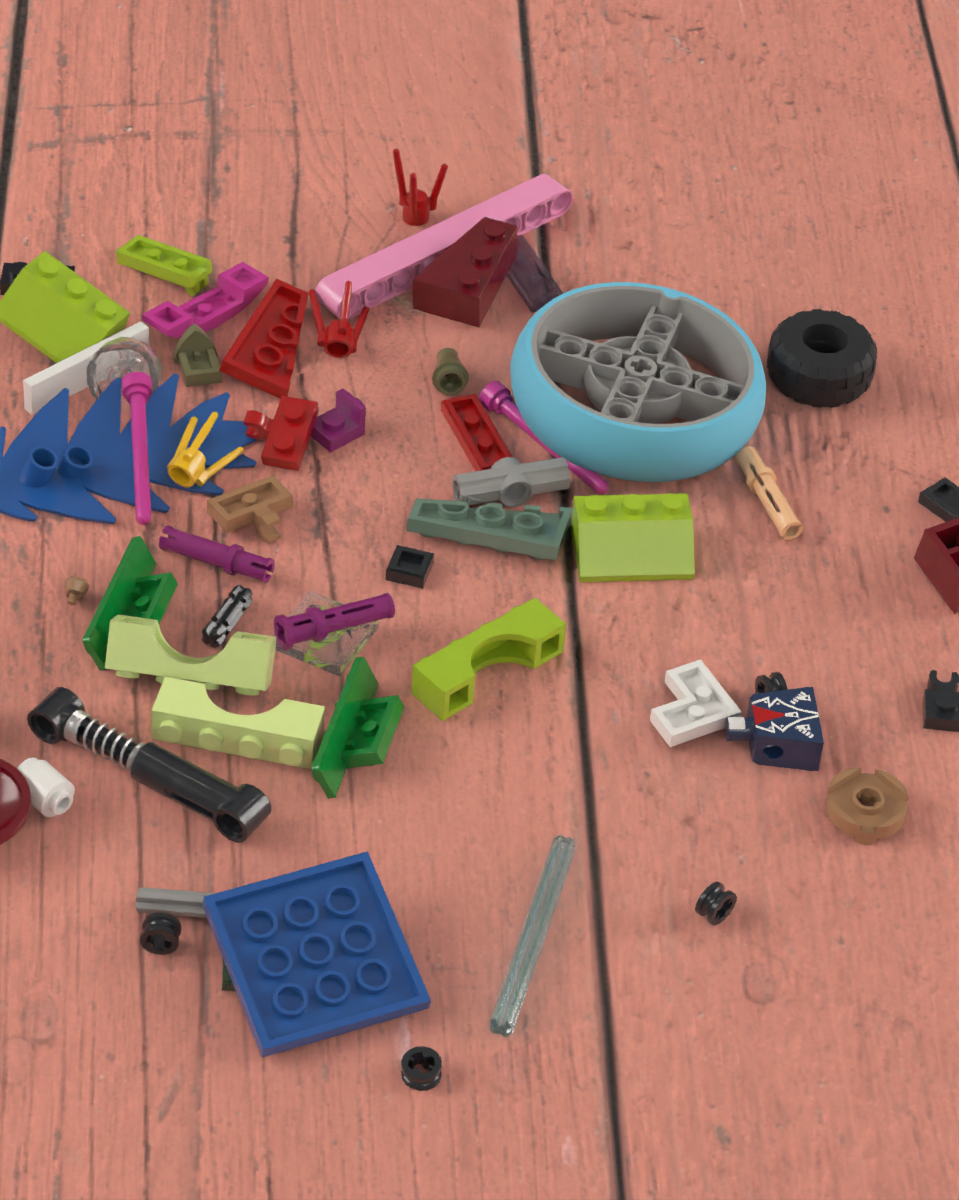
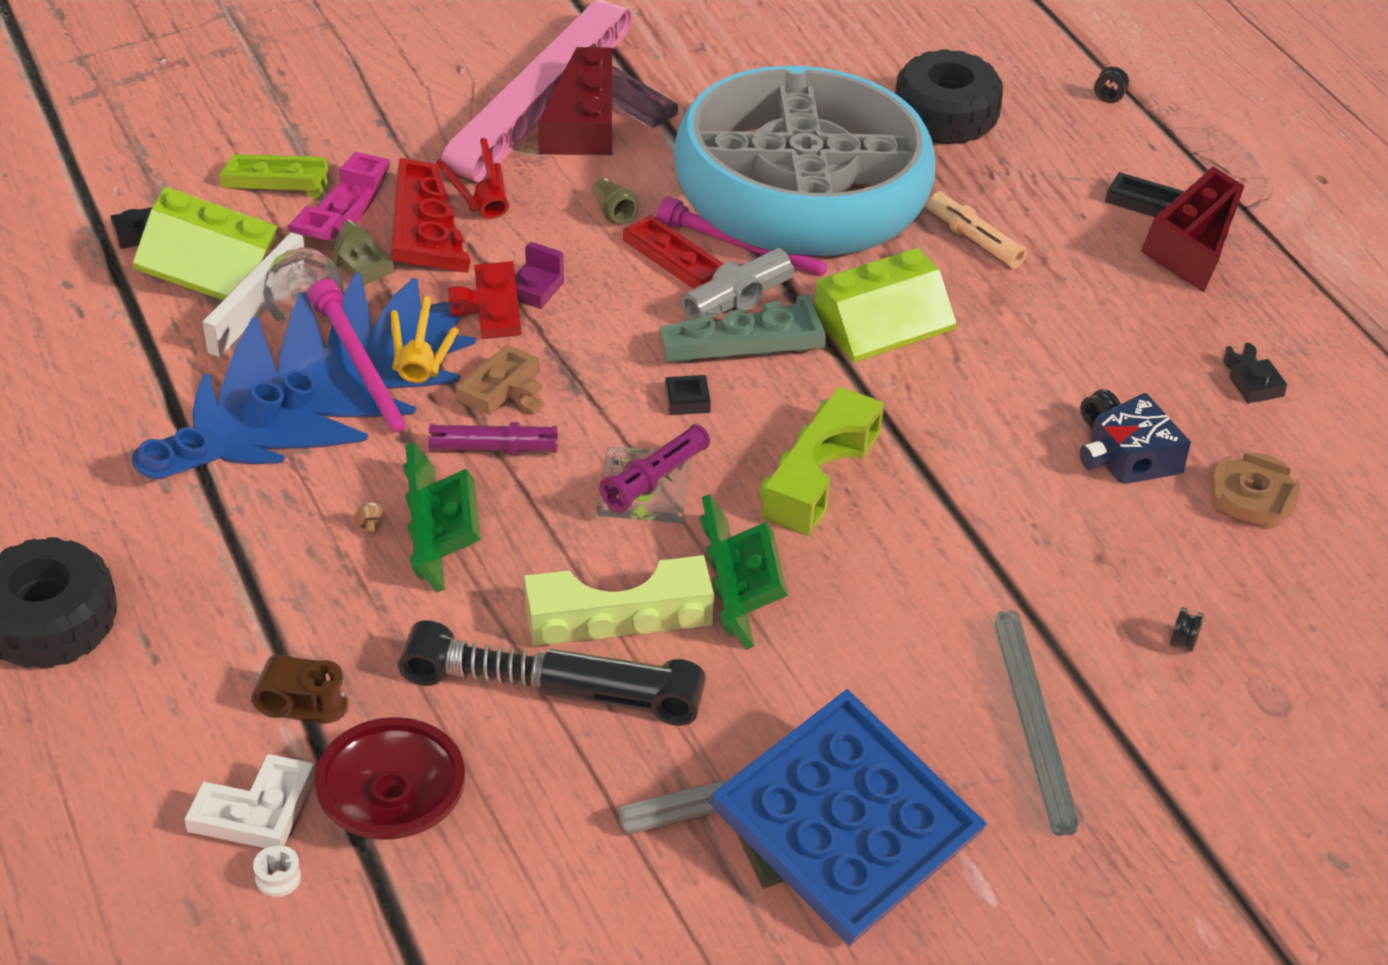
camera: 20 degrees left, 0 degrees up
(49, 789) = (466, 729): white brick -> none
(139, 647) = (590, 538): yellowish green arch -> none
(160, 933) = (671, 849): black bush -> none
(227, 616) = (539, 497): black axle -> none
(415, 202) = (490, 56): red plant -> none
(430, 1060) = (1014, 886): black bush -> none
(699, 707) = (1045, 441): white plate -> none

